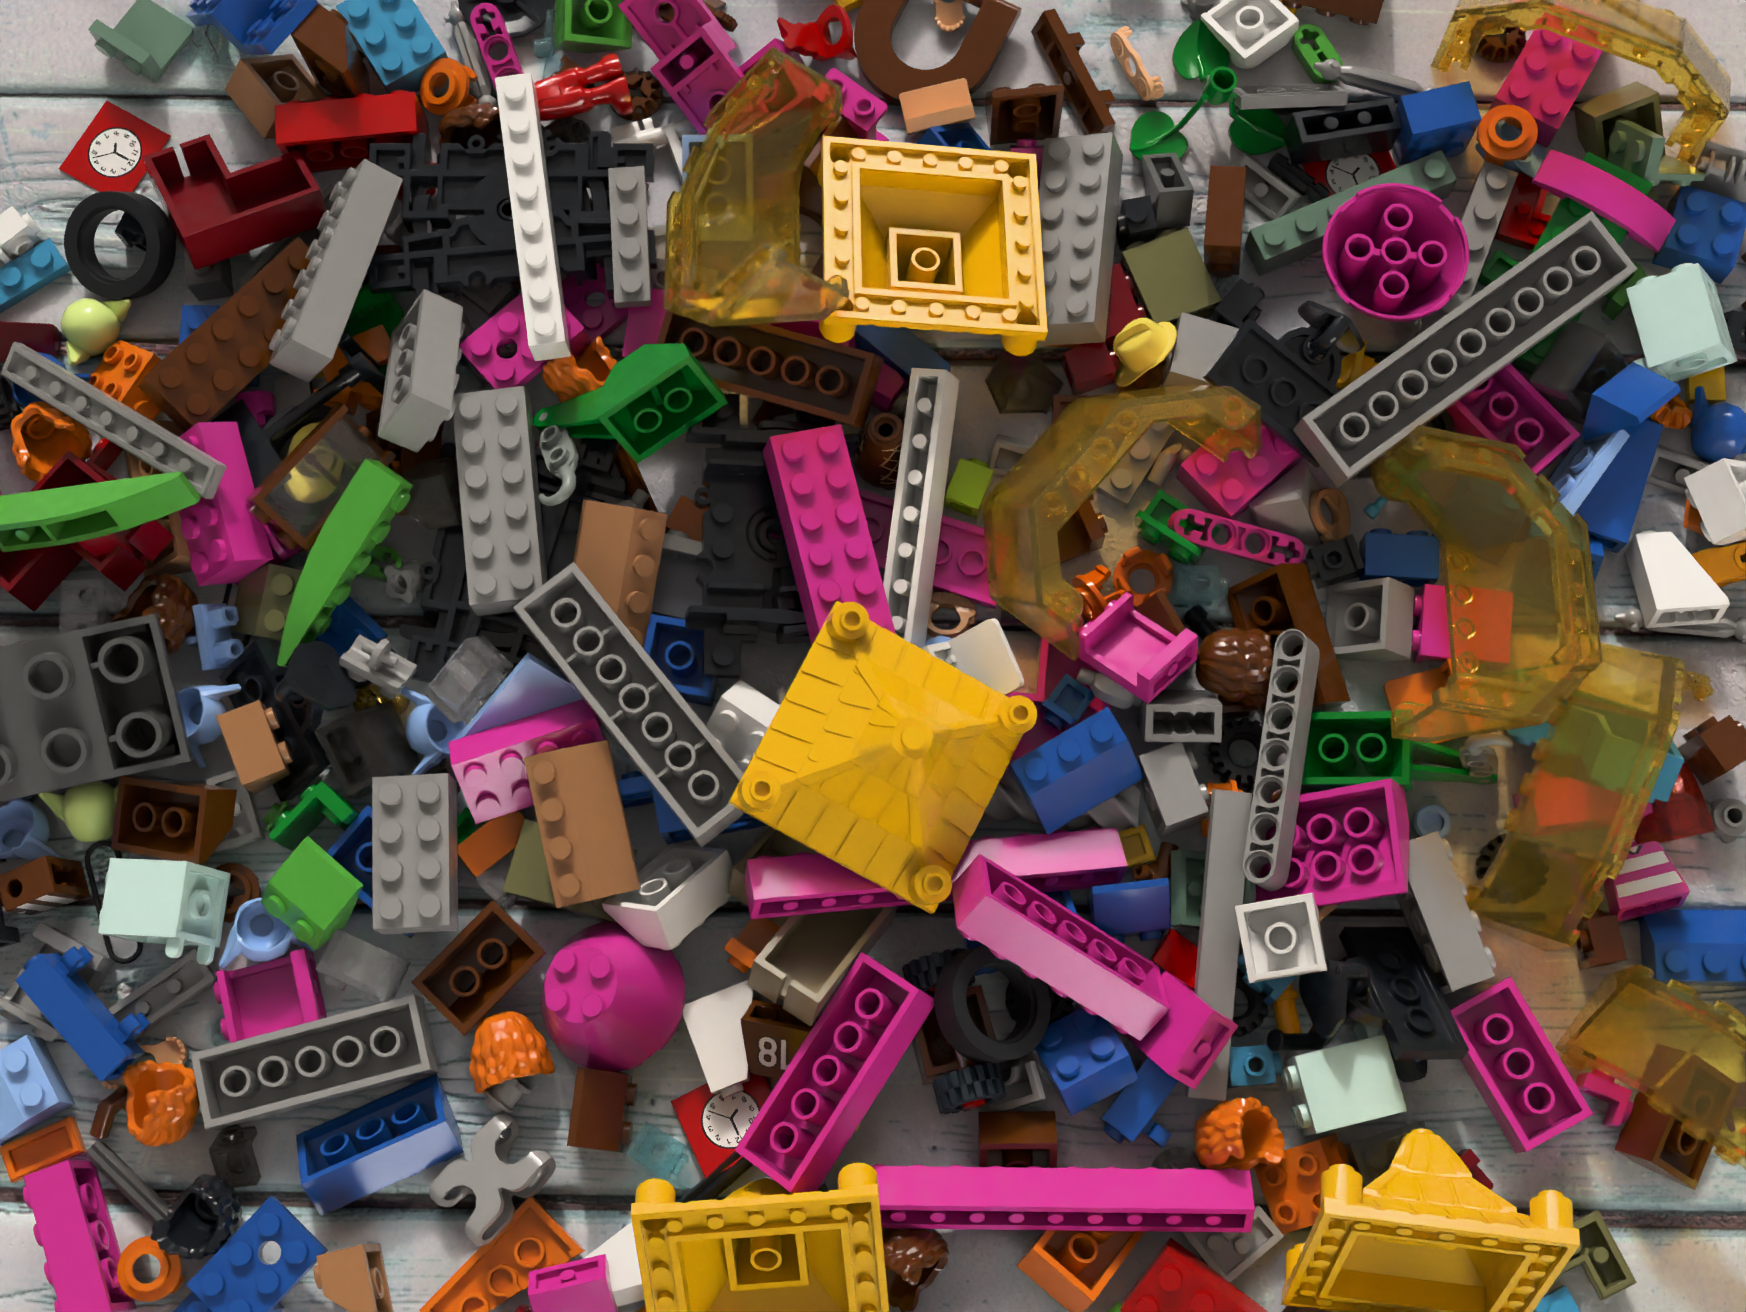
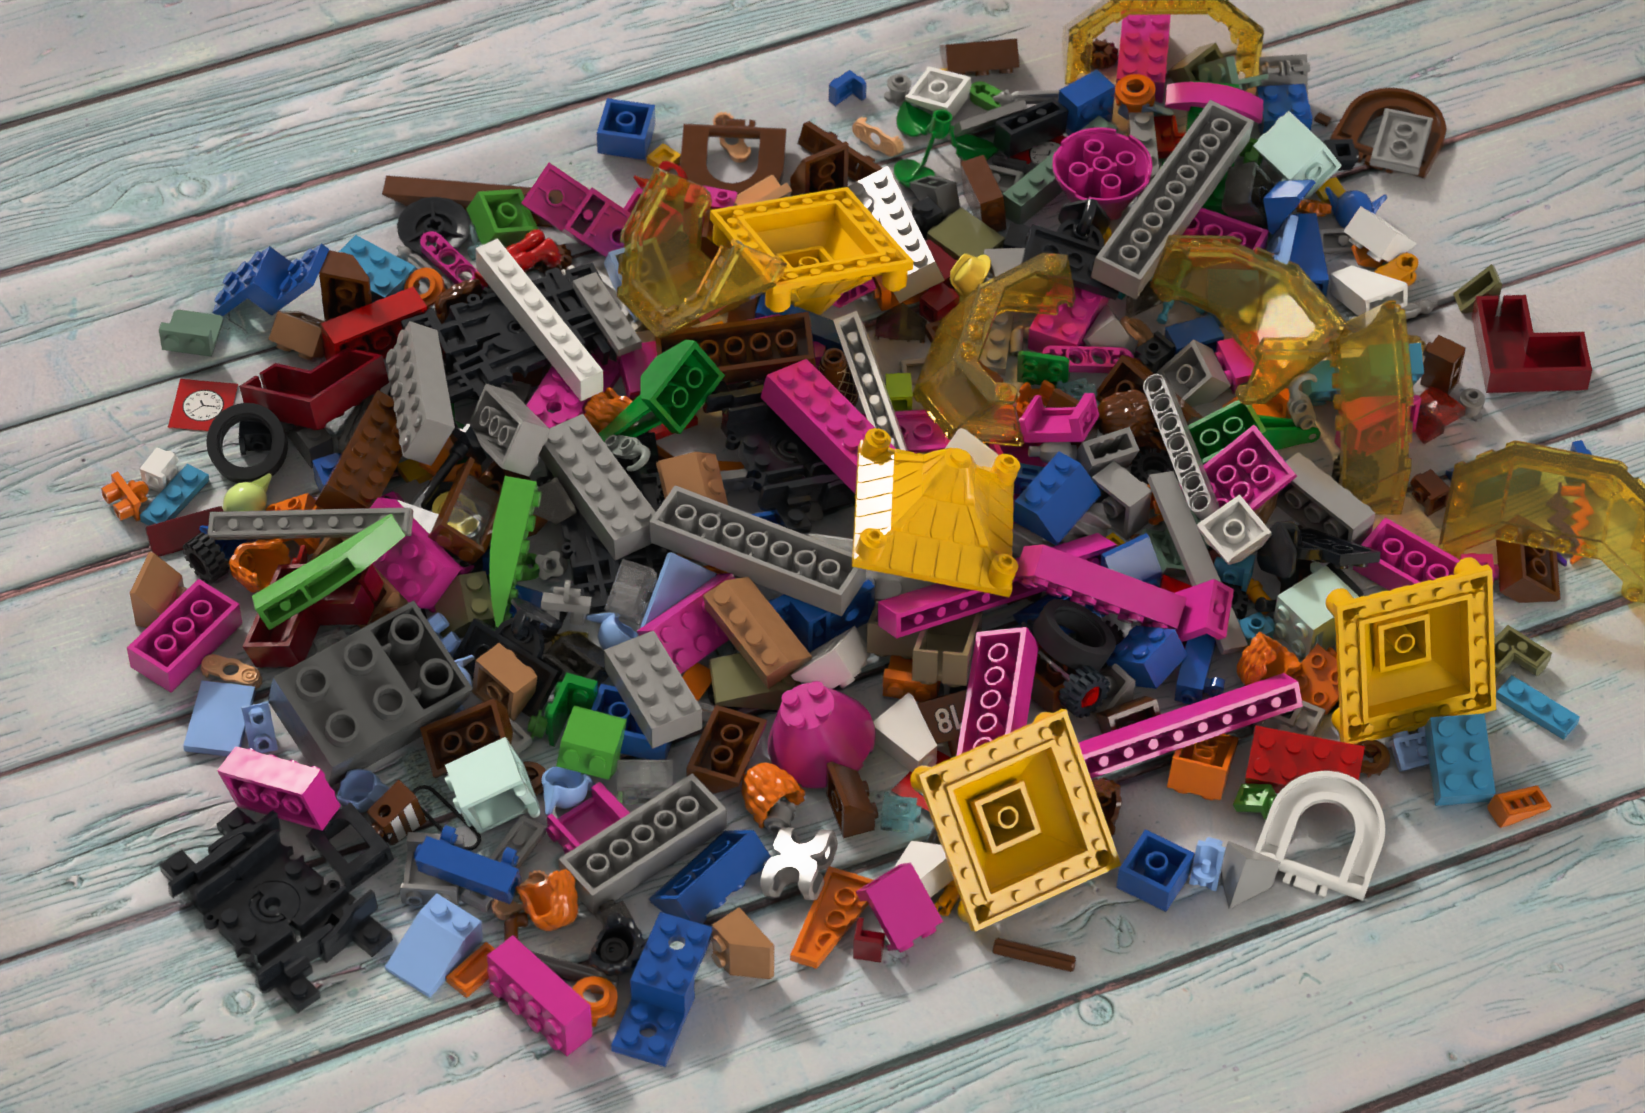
camera: 30 degrees left, 25 degrees down
(85, 810) = (402, 764): yellowish green piece -> none
(1645, 883) = (1437, 449): dark pink torso -> none

